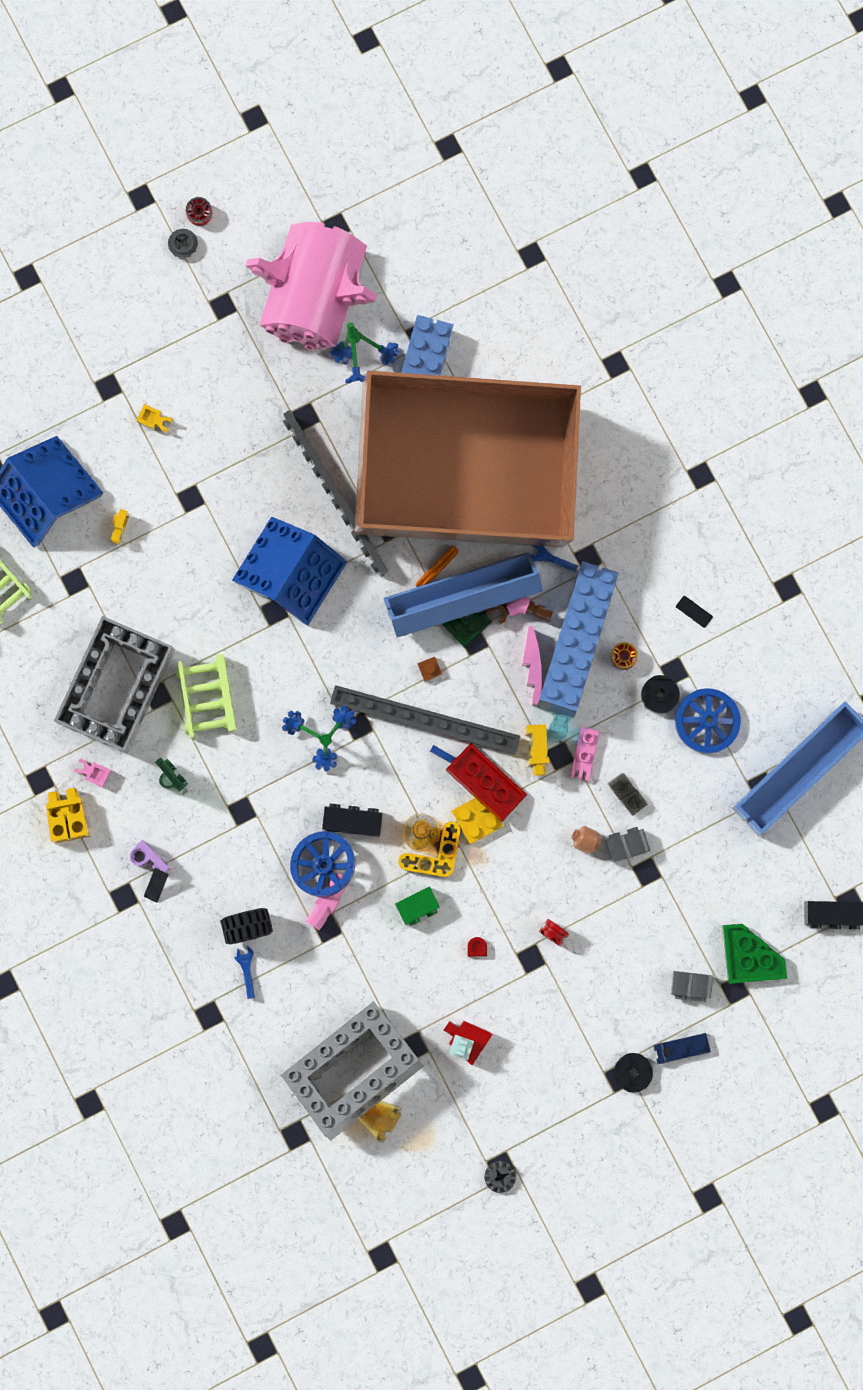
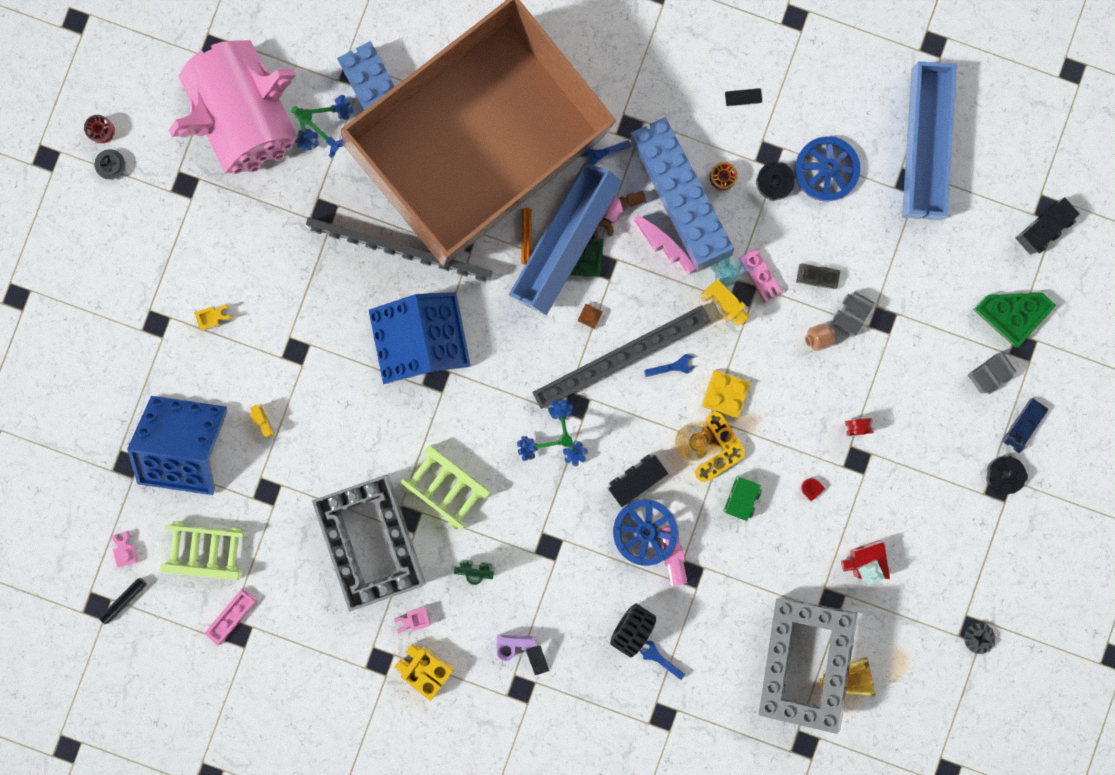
camera: 40 degrees left, 5 degrees up
(486, 782) = (709, 362): red tile -> none

